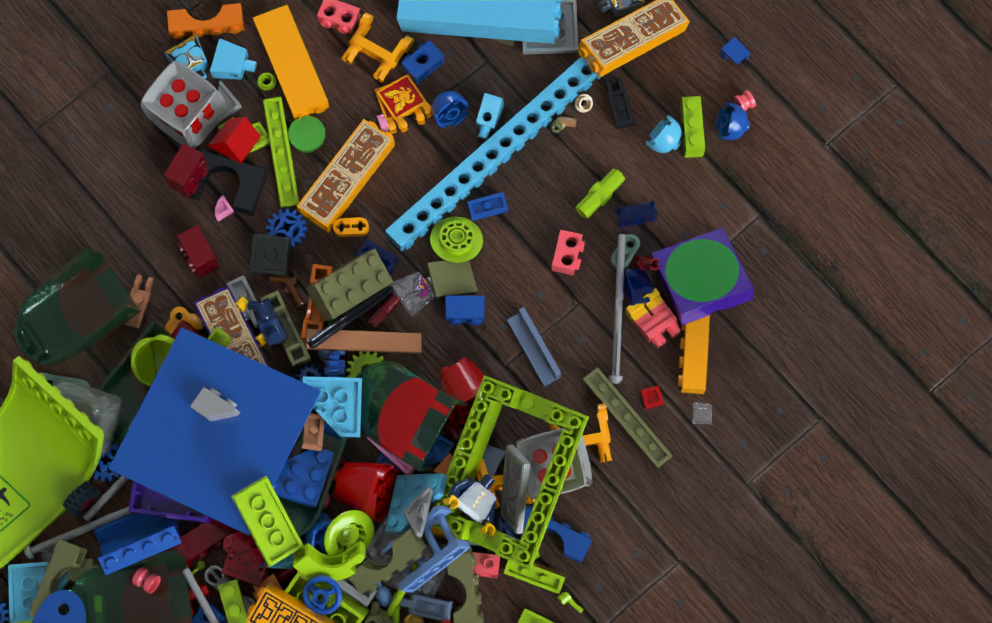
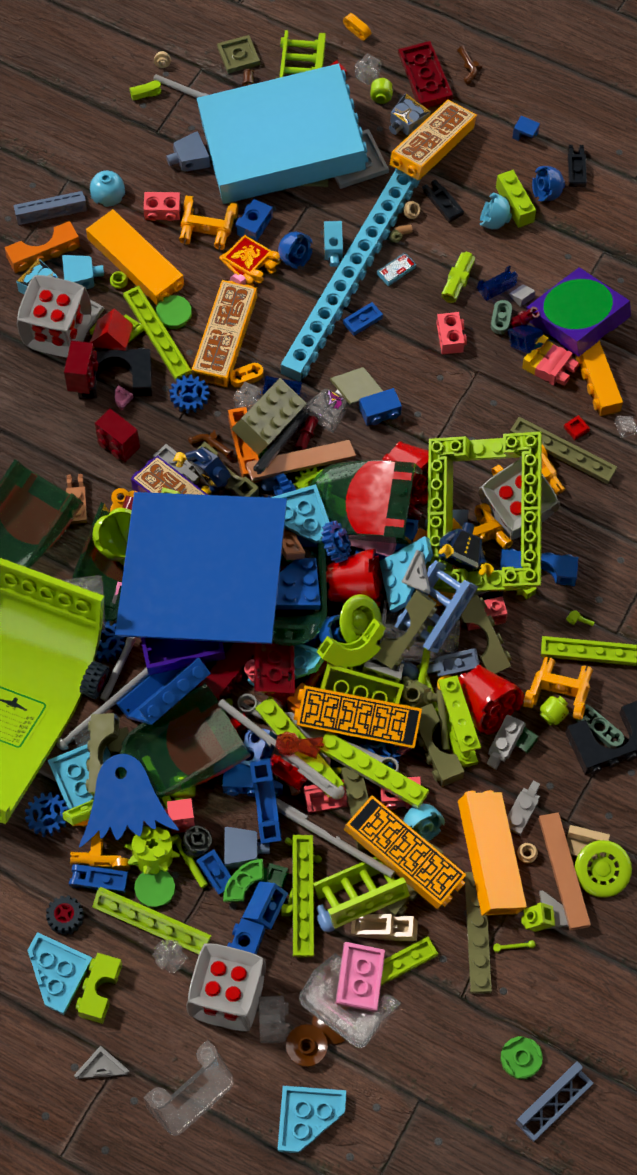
camera: 20 degrees left, 10 degrees down
(145, 579) = (187, 724): coral wheel -> none
(212, 406) = (194, 544): light grey slope -> none
(267, 521) = (284, 625): lime tile -> none
(270, 254) = (183, 418): pearl dark grey tile -> none
(320, 602) = (368, 667): blue piece -> none
(339, 254) = (247, 396): none -> clear brick
(356, 447) = (336, 541): none -> blue gear
(457, 233) = (351, 352): lime wheel -> none
(514, 489) = (494, 528): light grey tile -> none
(534, 347) = (453, 416): sand blue fence -> none
(538, 575) = (538, 605): lime plate -> none
(543, 162) = (396, 269): none -> tile
(615, 378) = (537, 419): light grey bar -> none
(657, 234) = (522, 295): none -> light grey slope
(745, 100) = (553, 161): coral wheel -> none
(769, 112) = (576, 167): none -> black hinge

